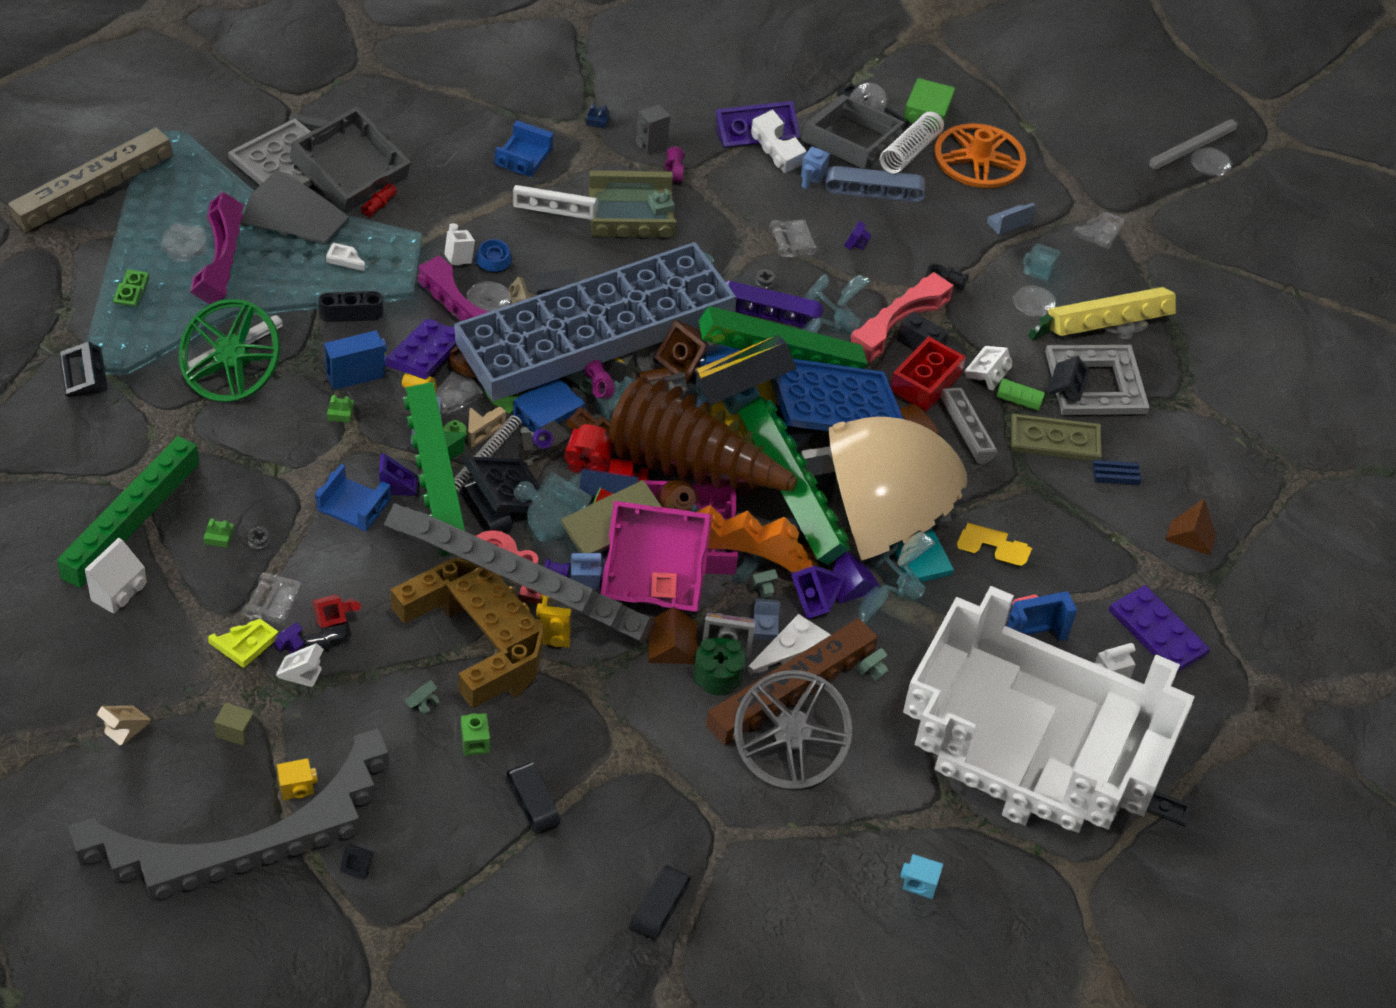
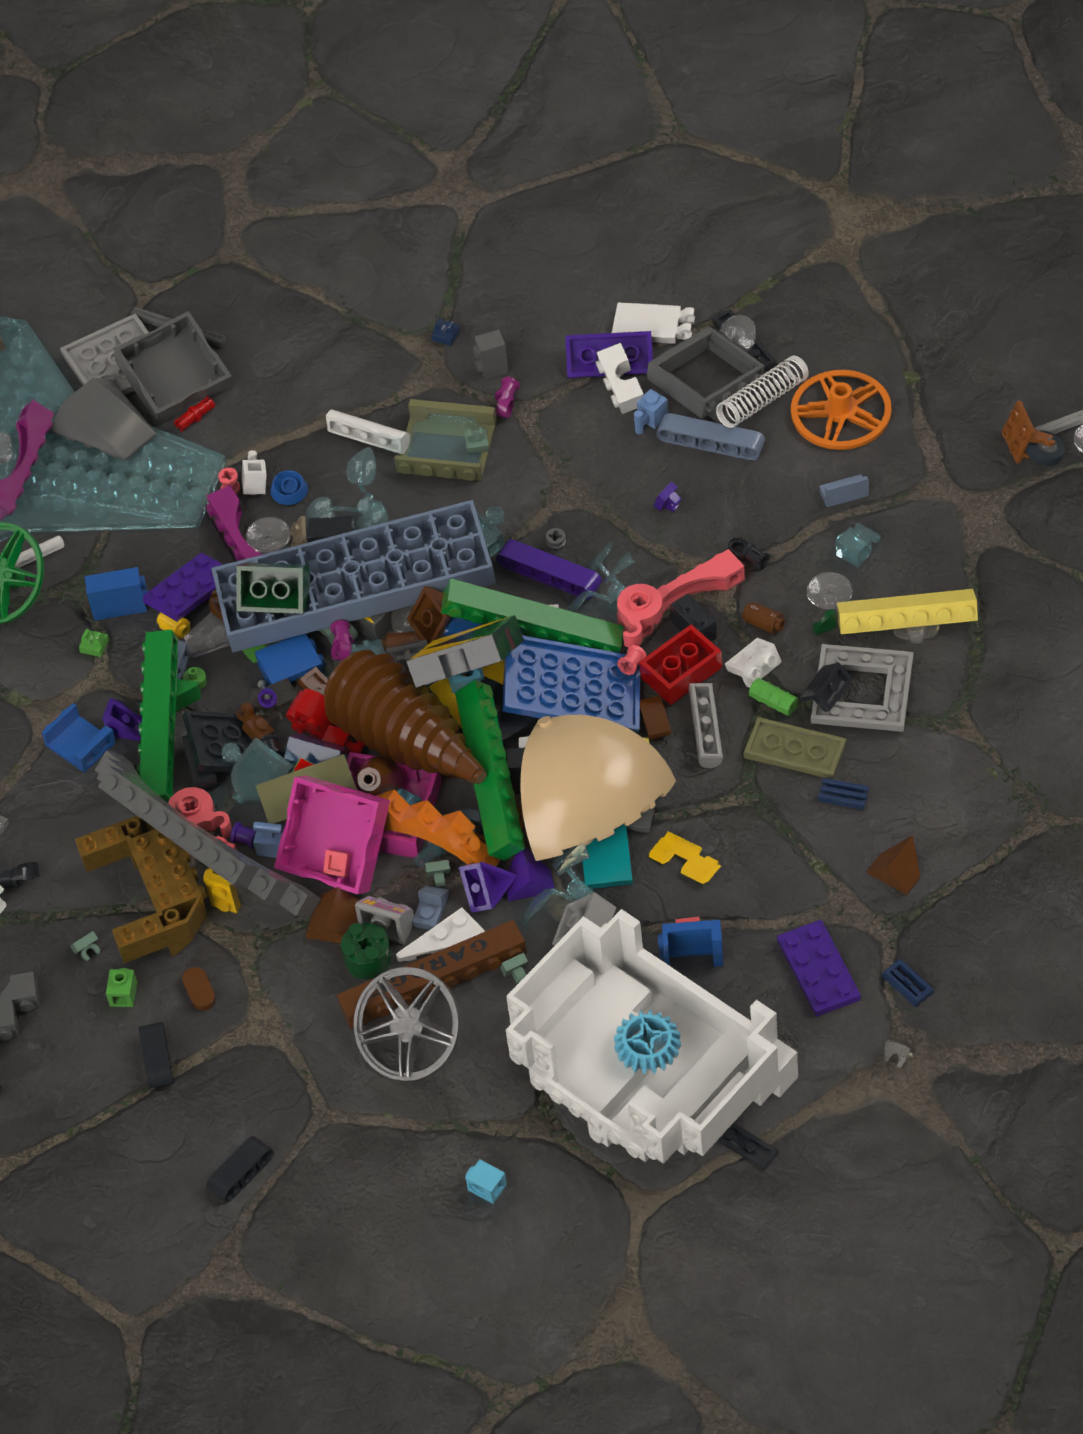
camera: 25 degrees right, 5 degrees up
(332, 610) = (25, 850): red brick -> none
(344, 256) = (139, 477): white tile -> none
(351, 306) = (132, 532): black beam -> none
(433, 249) = (228, 477): none -> coral bush
(483, 448) = (223, 698): white piece -> none
(484, 427) = (220, 678): tan slope -> none
(525, 149) = (357, 367): blue panel -> none
(527, 333) = (272, 587): none -> slope
(534, 468) = (253, 725): none -> reddish brown plate
(555, 725) = (199, 988): none -> reddish brown tile
(570, 227) = (359, 471): none -> clear light blue plant
(781, 92) = (659, 319): none -> white tile
(798, 236) = (608, 492): clear plate -> none
(876, 327) = (639, 608): none -> coral piece
(883, 370) = (629, 663): none -> coral bush
(927, 607) = (592, 907): none -> light grey slope
(929, 97) = (807, 339): bright green brick -> none
(984, 328) = (763, 618): none -> reddish brown head
(1040, 722) = (659, 1033): none -> medium azure gear
(1101, 229) = (938, 512): clear wing -> none
(1118, 659) = (748, 994): white brick -> none
(1153, 163) = (1028, 442): none -> dark orange plate
(1244, 635) = (921, 996): none -> dark blue tile

